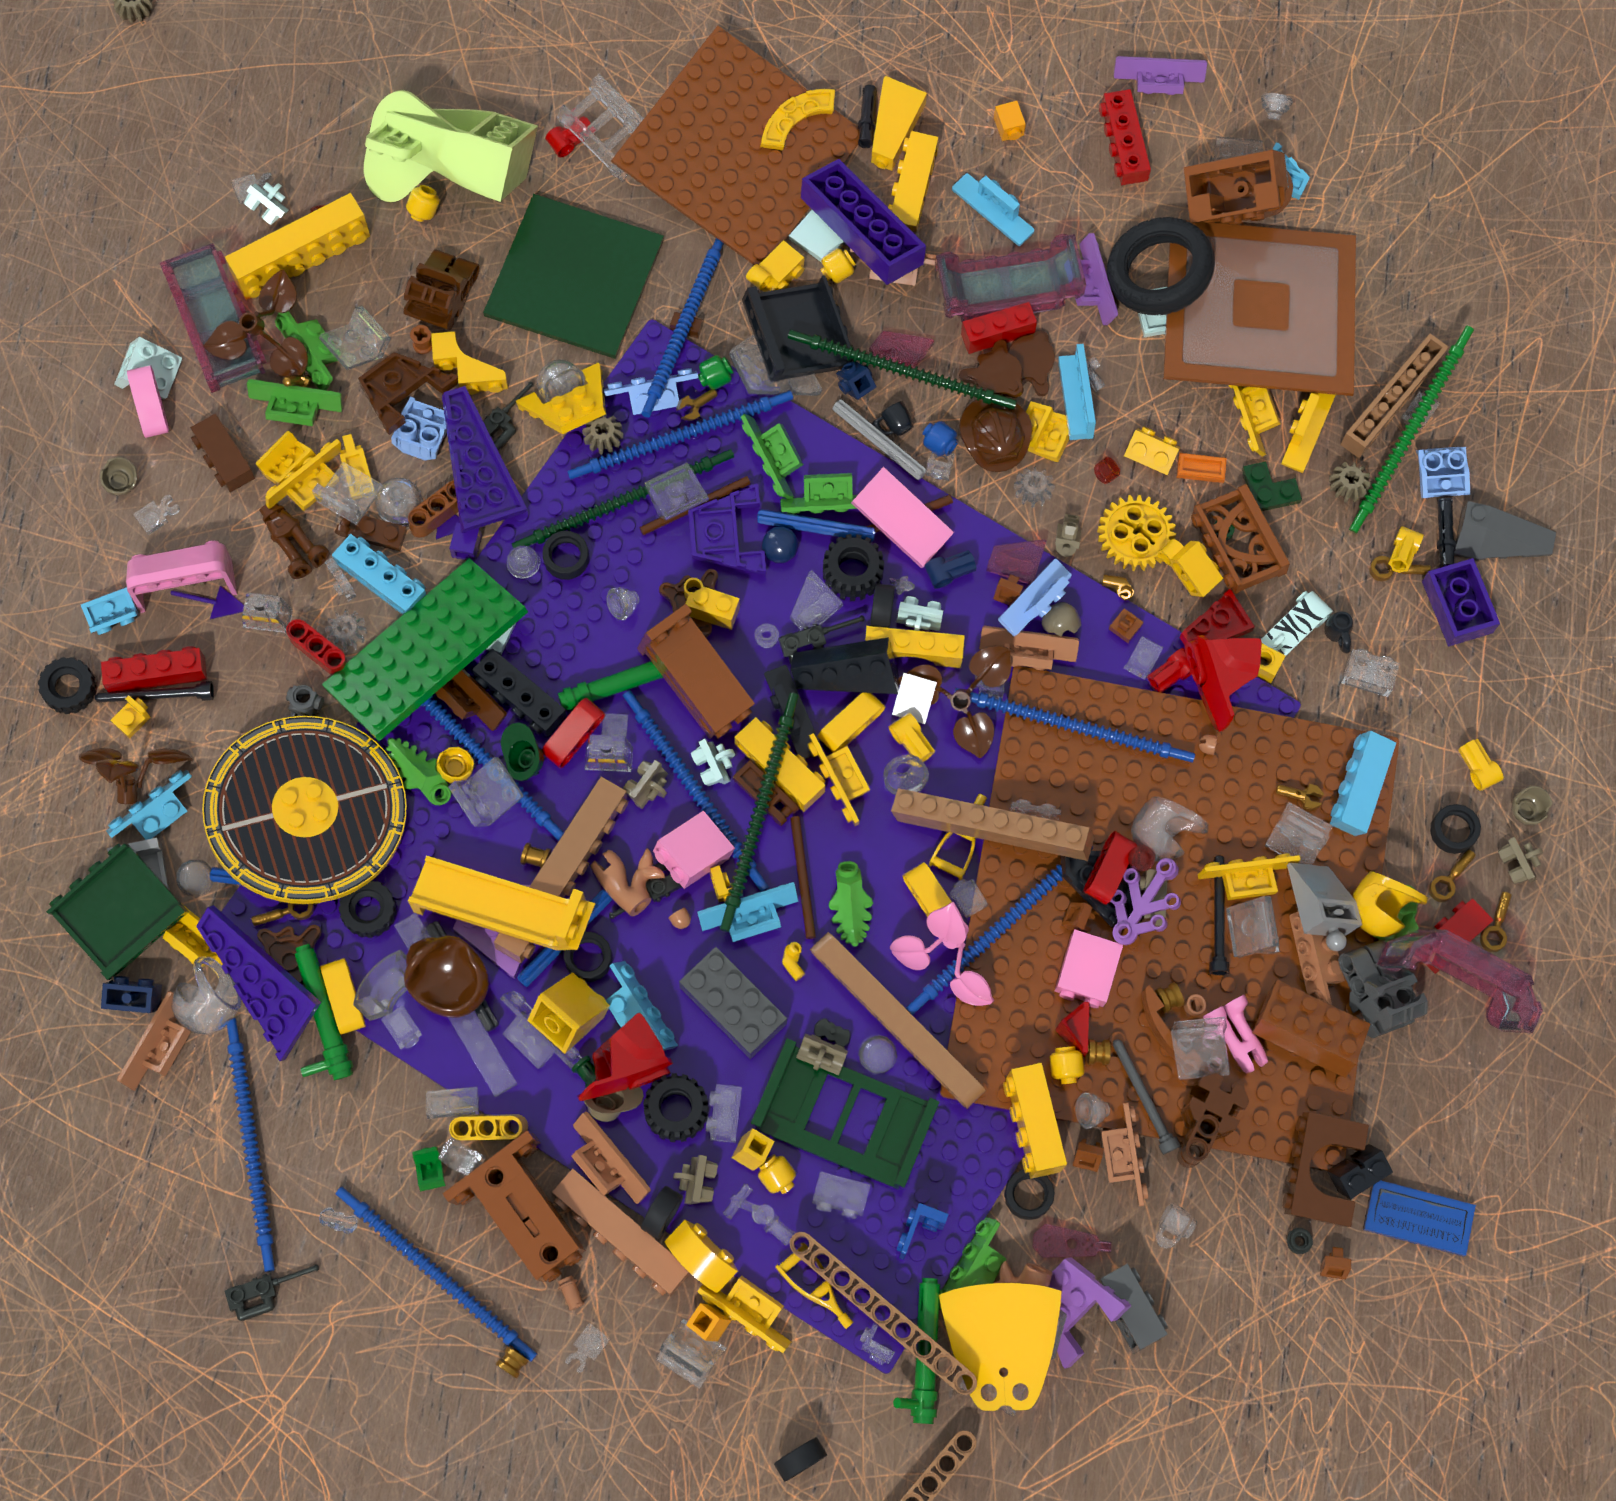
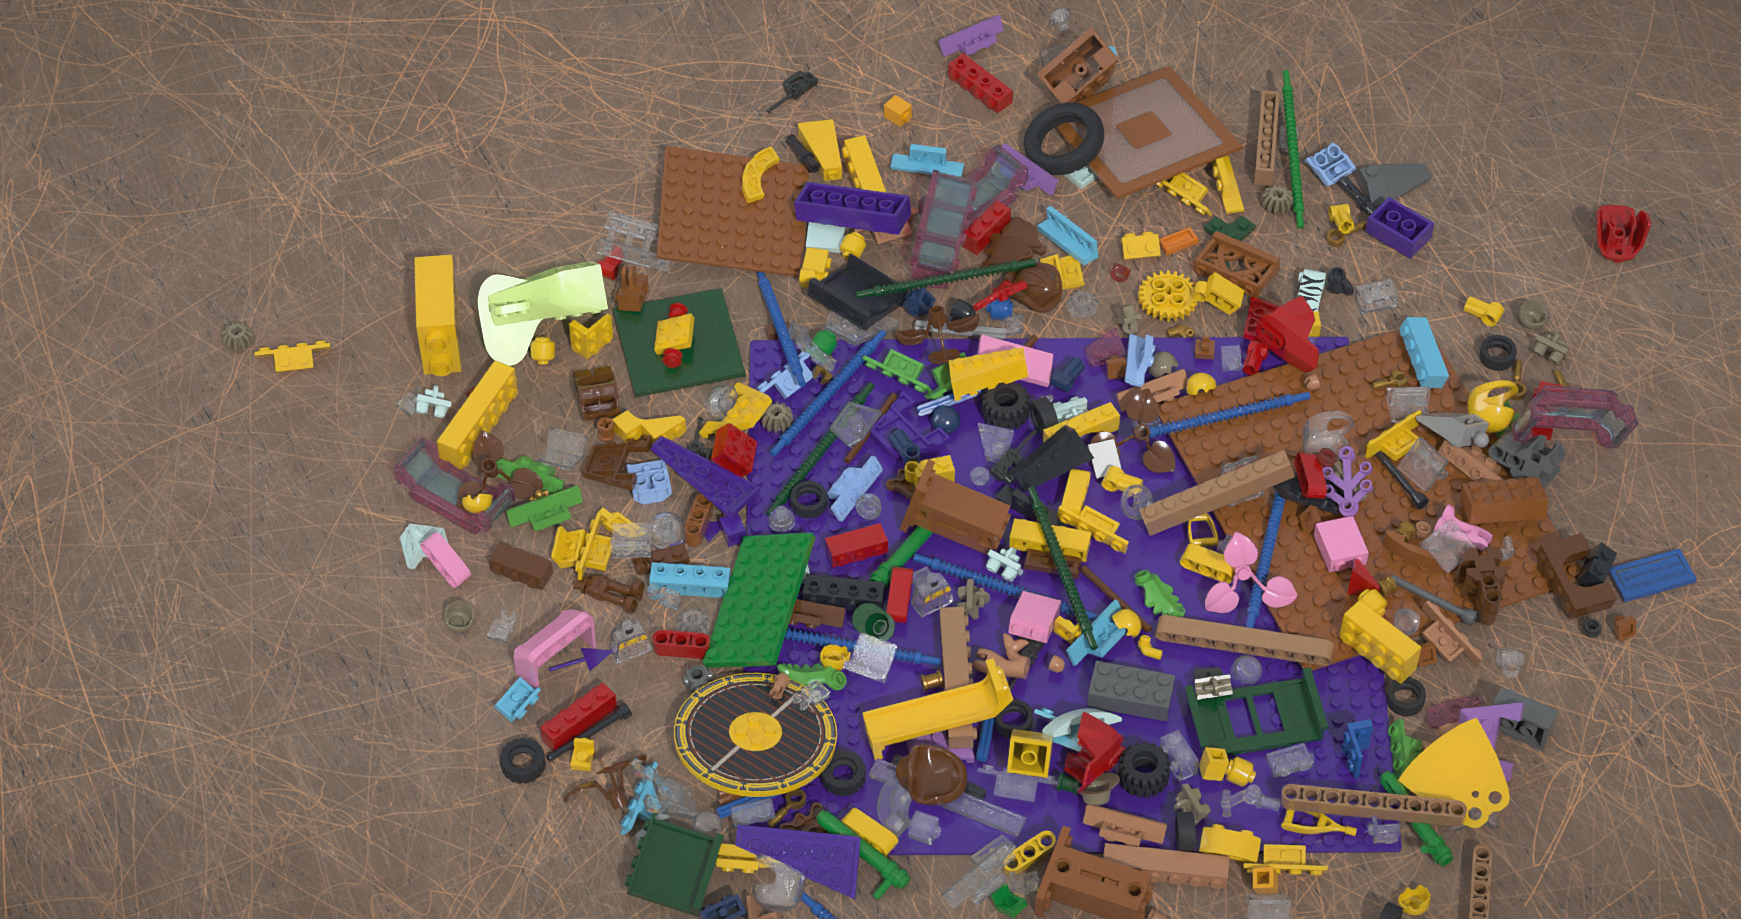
camera: 30 degrees left, 20 degrees down
(170, 61) = (293, 358): none -> yellow bracket
(175, 827) = (671, 797): none -> clear wing
(218, 355) = (478, 503): none -> yellow hair
(238, 900) = (752, 812): none -> clear bracket
(331, 101) = (437, 315): none -> yellow brick
(370, 766) = (781, 682): none -> nougat pin
(397, 799) = (813, 693): none -> clear plate
(414, 1130) = (981, 879): none -> clear bracket
(482, 221) = (589, 341): none -> yellow bracket
(529, 448) = (734, 450): none -> red brick
(564, 184) = (632, 290): none -> dark orange brick
(568, 266) = (674, 335): none -> yellow plate
(574, 643) = (856, 545): none -> red brick
(622, 567) = (852, 485): none -> light blue bracket
(649, 1004) = (1061, 725): none -> light aqua slope
(689, 368) = (805, 343): none -> clear tile
(705, 555) = (905, 446): none -> dark blue piece
(788, 917) = (1128, 619): none -> yellow hair
(821, 418) = (937, 320): none -> reddish brown plant
(851, 518) = (986, 371): none -> yellow wedge
(851, 1448) = (1414, 900): none -> yellow hair
(923, 29) = (796, 89): none -> pearl dark grey piece
(946, 425) = (1001, 293): none -> red piece
(947, 295) = (943, 223): none -> windscreen
(1084, 669) = (1200, 381): none -> yellow hair
(1274, 1088) = (1508, 549): none -> clear arm

